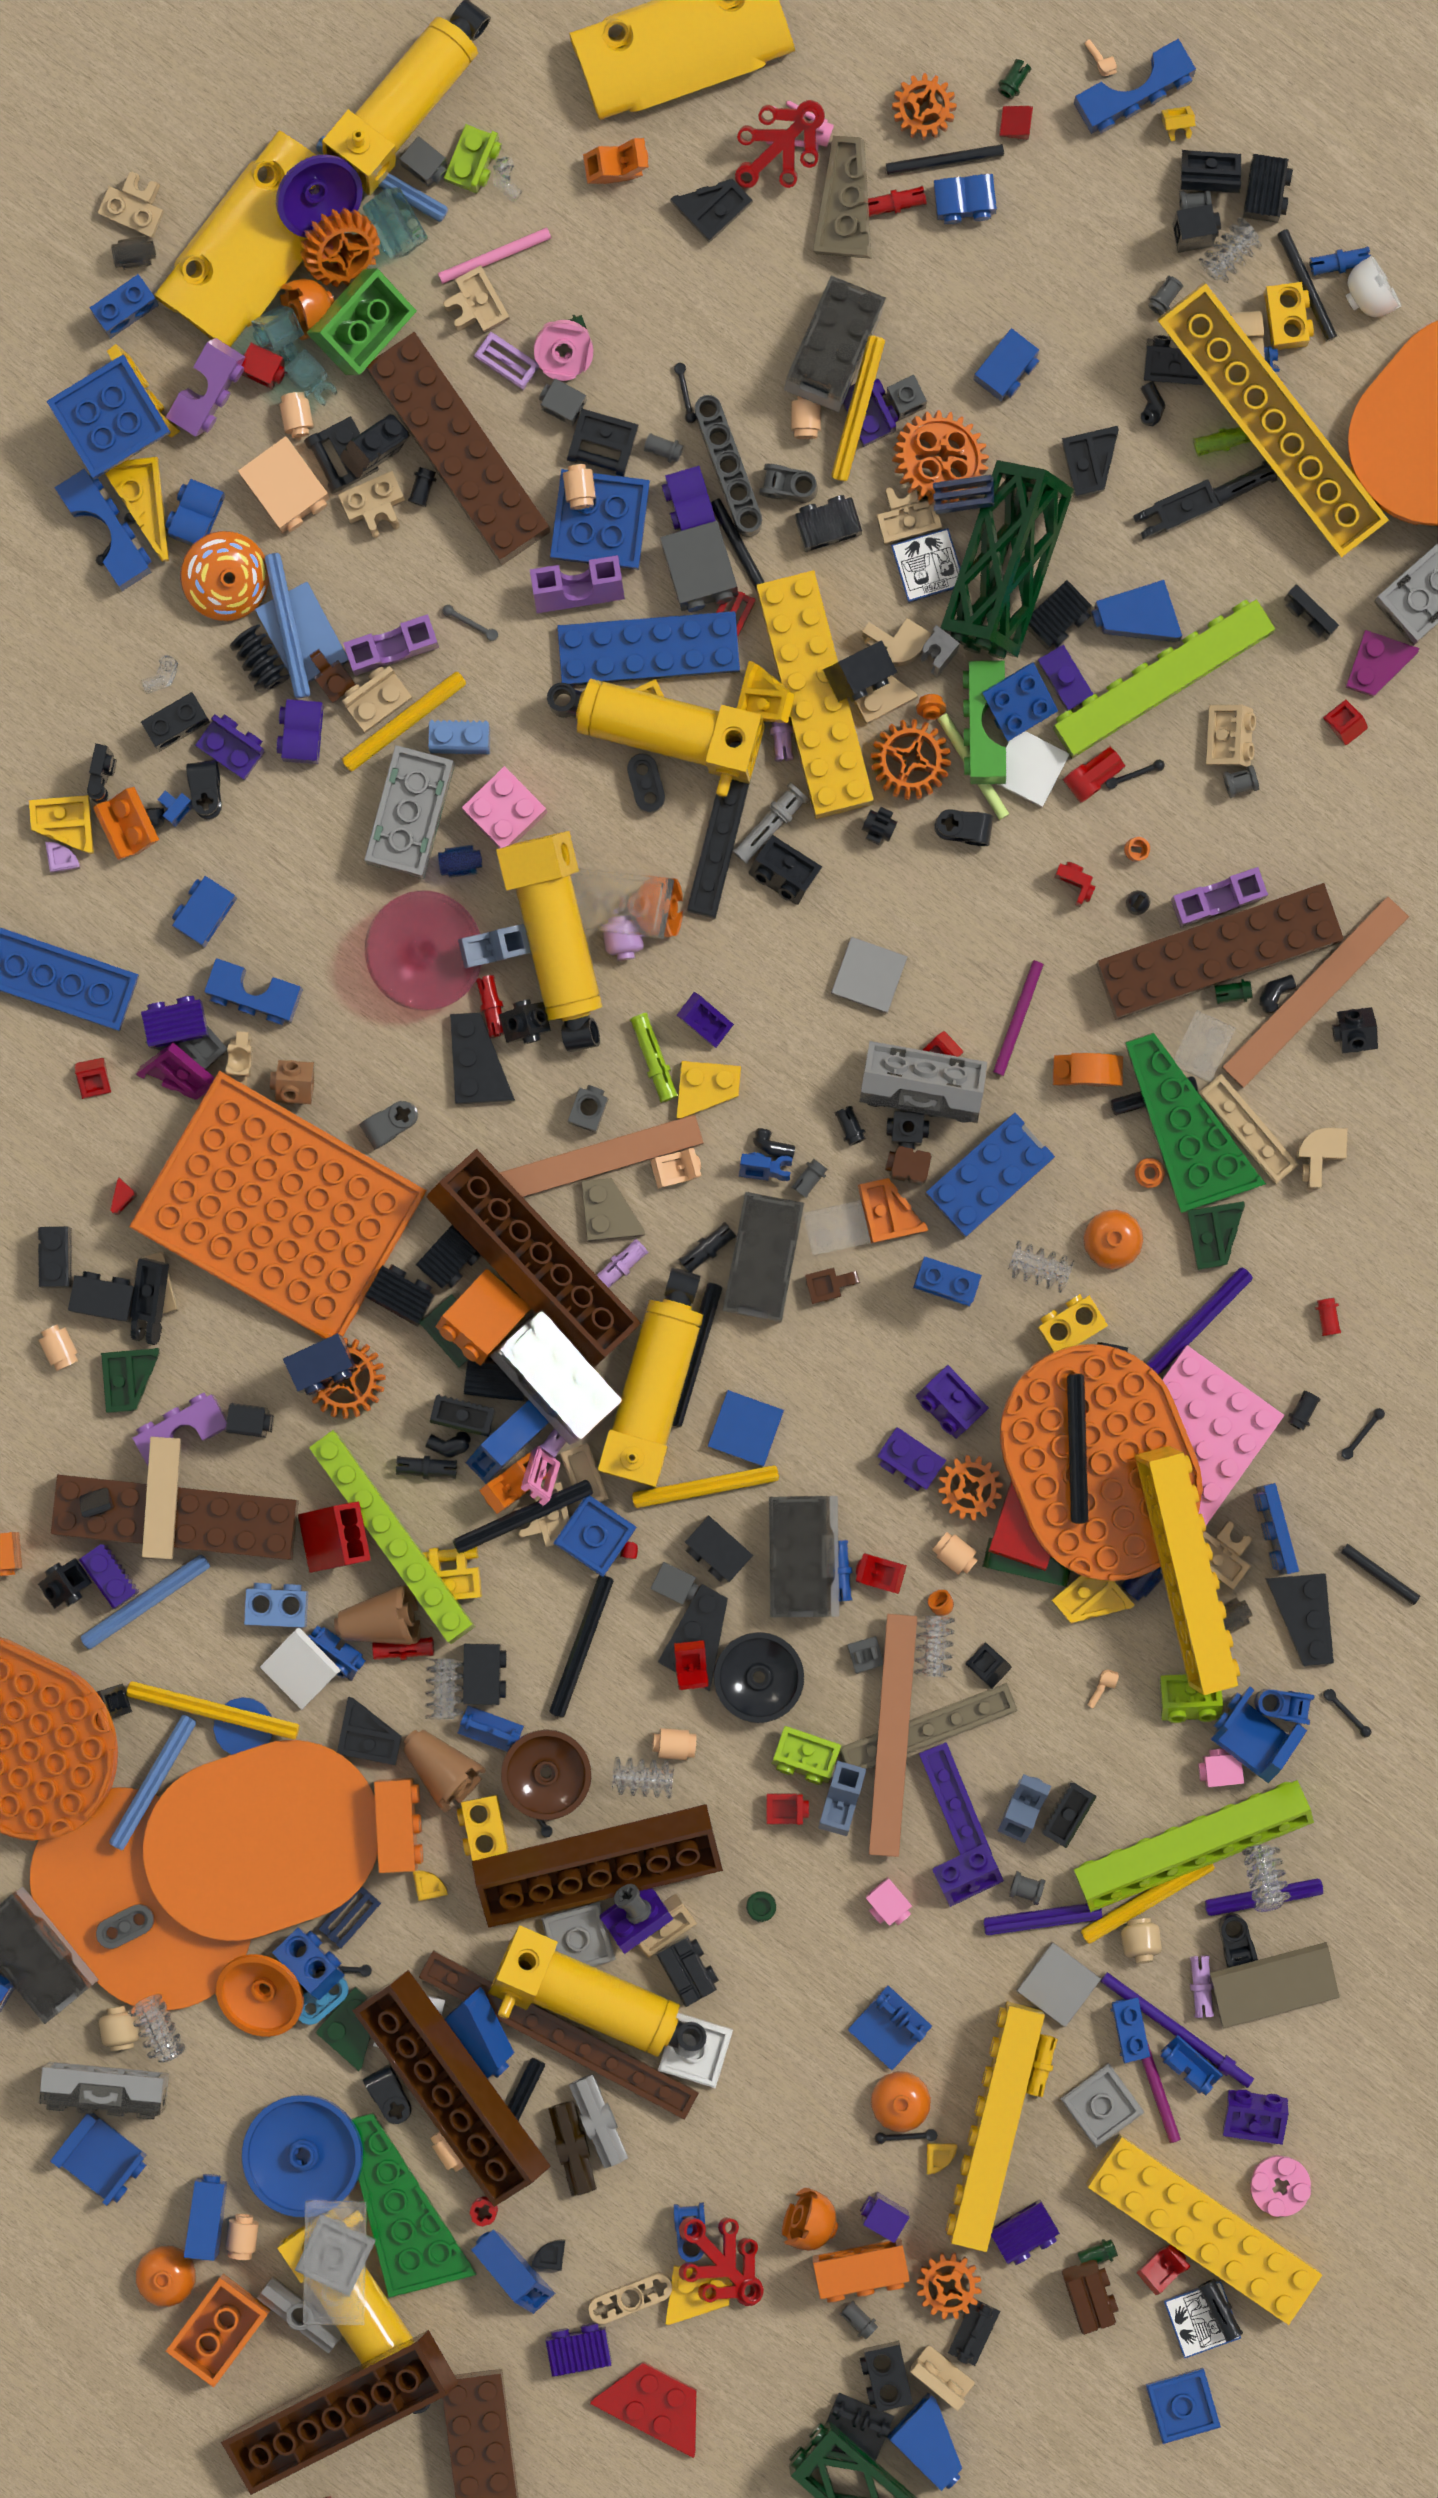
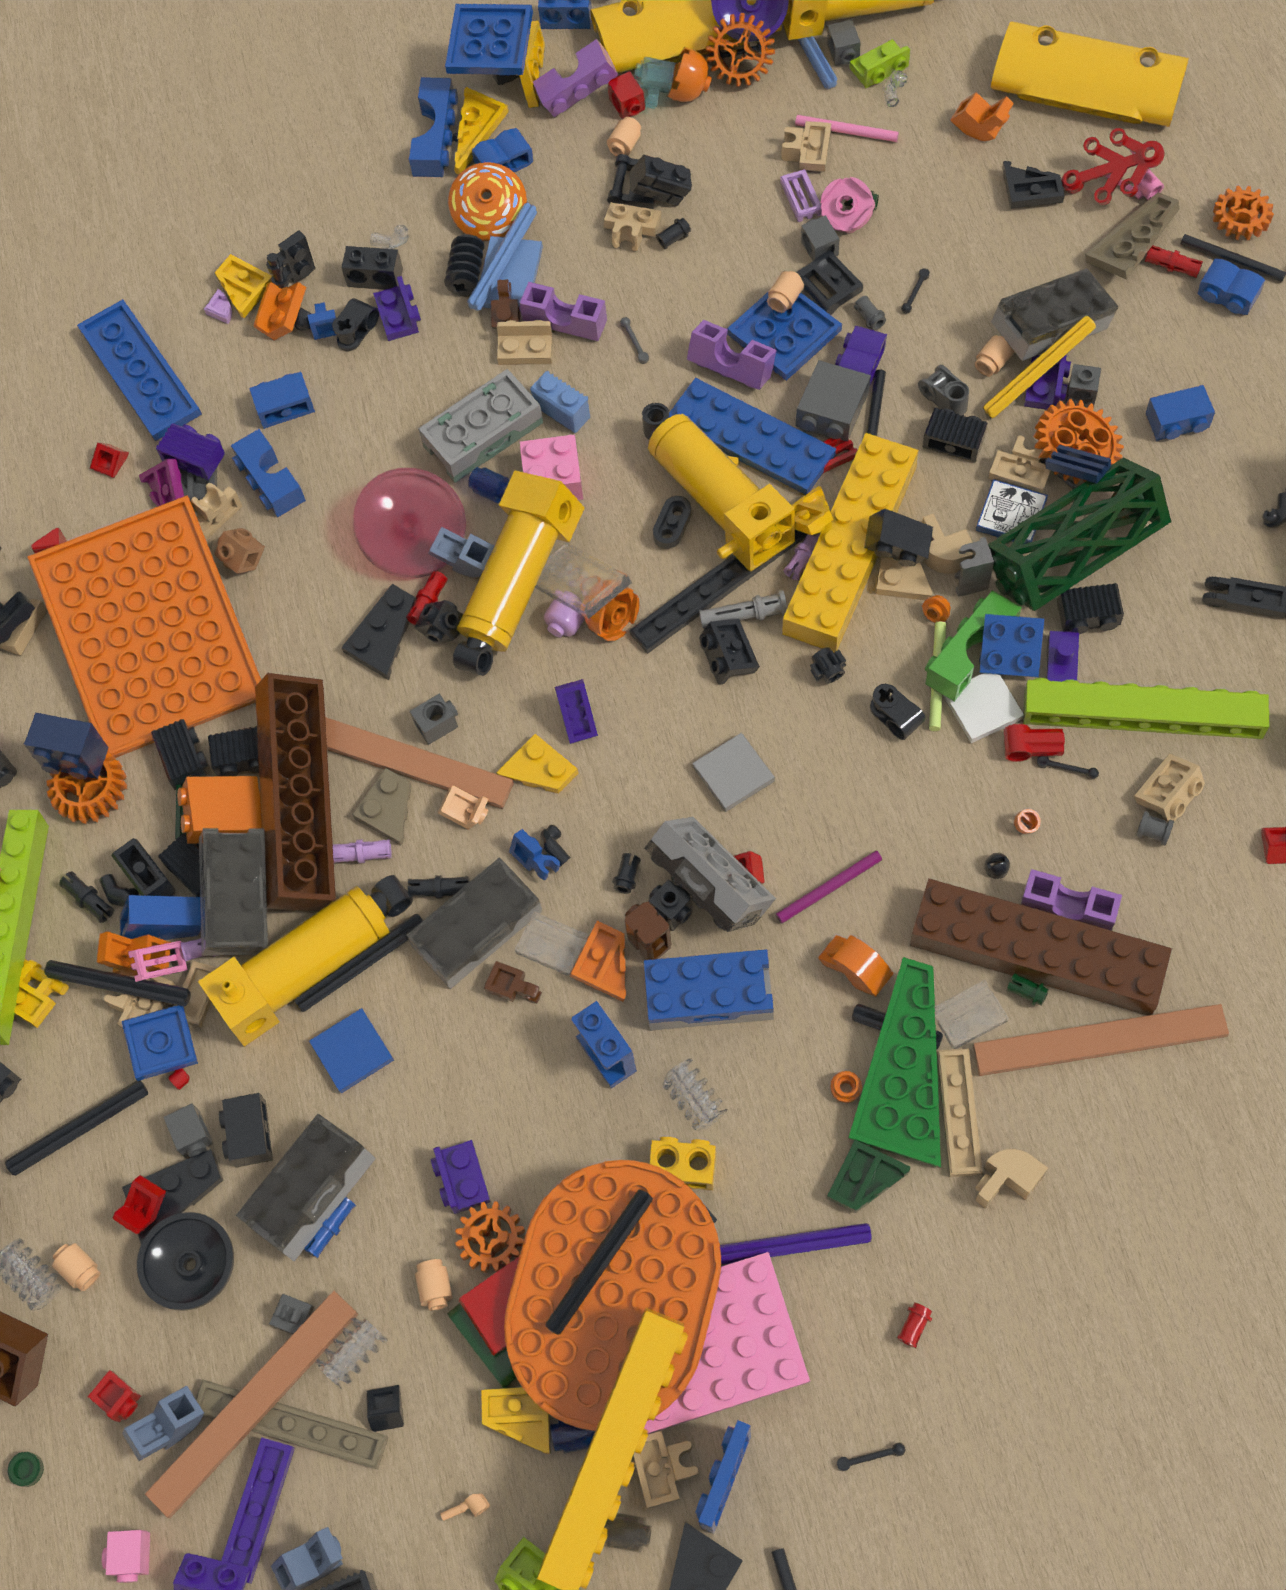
camera: 40 degrees right, 20 degrees down
(284, 485) = (578, 173): light nougat brick -> none
(301, 731) = (453, 330): dark purple brick -> none
(308, 376) = (652, 117): clear light blue brick -> none
(361, 321) = (716, 99): bright green brick -> none
(384, 1124) = (282, 627): dark grey piece -> none
(395, 223) = (792, 63): clear light blue brick -> none
(404, 721) = (533, 370): yellow axle -> none
(458, 448) = (718, 223): reddish brown brick -> none
(654, 1059) = (512, 727): lime pin -> none
(705, 1486) = (281, 1073): yellow axle -> none
(724, 452) = (904, 361): dark grey beam -> none
(805, 1755) = (169, 1360): lime bracket -> none
(809, 1178) = (562, 890): dark grey pin -> none
(880, 1573) = (357, 1251): red bracket -> none
(898, 753) = (885, 648): orange gear -> none
(941, 1602) = (388, 1319): orange hinge -> none
(951, 1402) = (532, 1153): dark purple bracket -> none
(1073, 874) = (959, 809): red bracket -> none
(1090, 459) = (1200, 517): black wing -> none
(1113, 1239) = (773, 1119): orange cylinder -> none
(1139, 614) = (1158, 648): blue slope -> none
(1273, 990) = (1062, 1013): black arm -> none
(1303, 1410) = (831, 1393): black pin -> none
(1356, 1030) = (1114, 1092): black brick -> none

